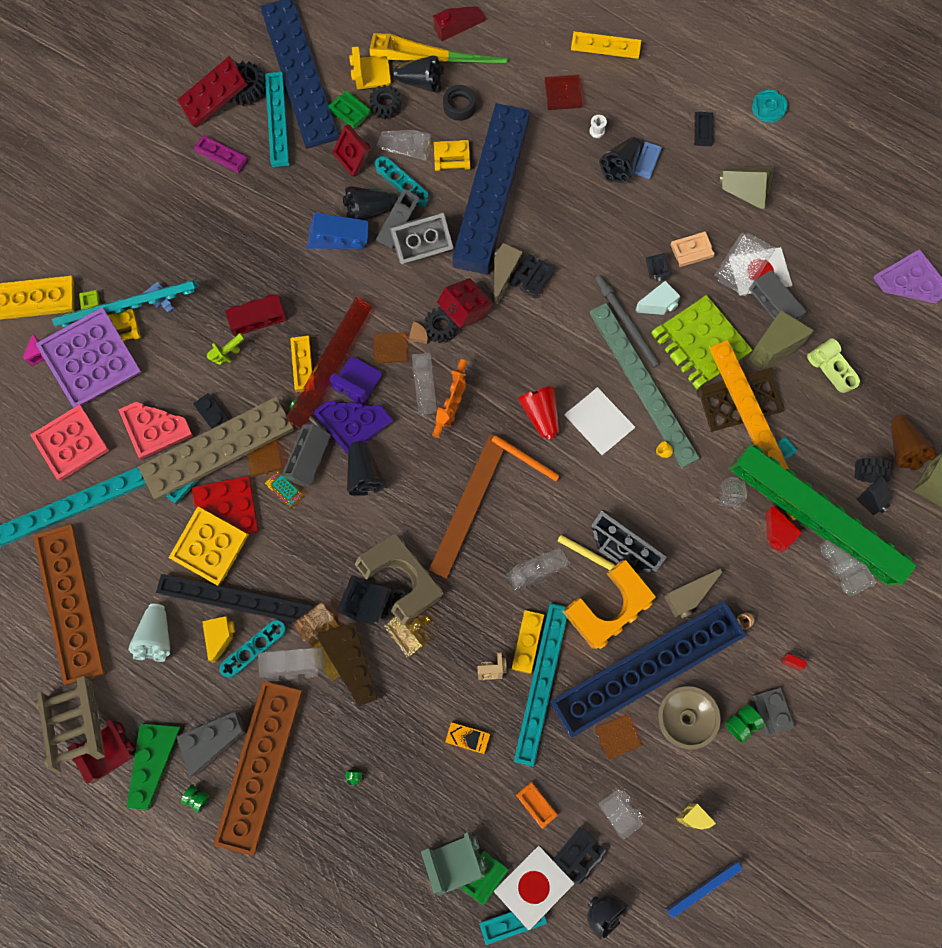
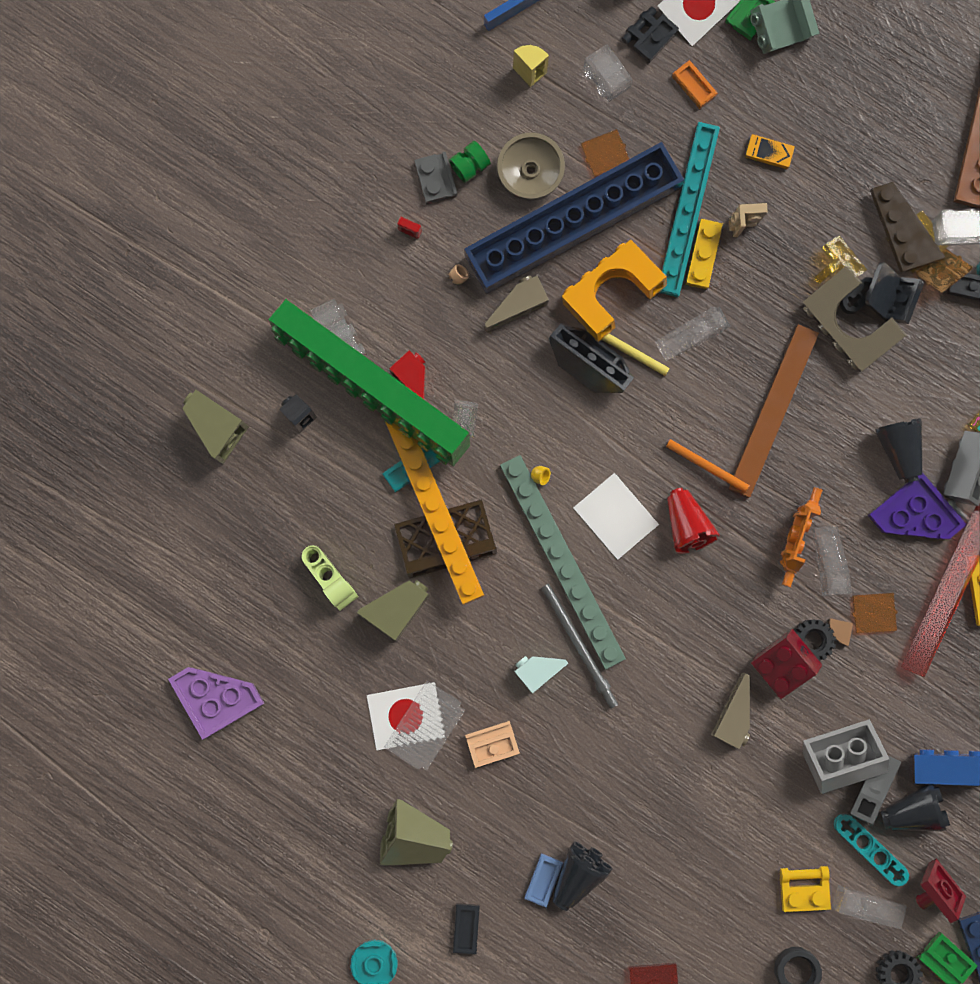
camera: 175 degrees right, 10 degrees up
(353, 777) = (892, 112): green hinge -> none
(356, 380) = (916, 565): dark purple bracket -> none
(491, 189) = (752, 837): dark blue brick -> none
(537, 277) = (693, 703): black plate -> none
(598, 126) = (614, 936): white bush -> none
(657, 267) = (538, 716): black bracket -> none
(694, 333) = (489, 627): lime hinge -> none
(775, 296) = (389, 669): dark grey brick -> none
(872, 469) = (297, 443): black tyre -> none
(910, 445) = (250, 478): reddish brown cone -> none

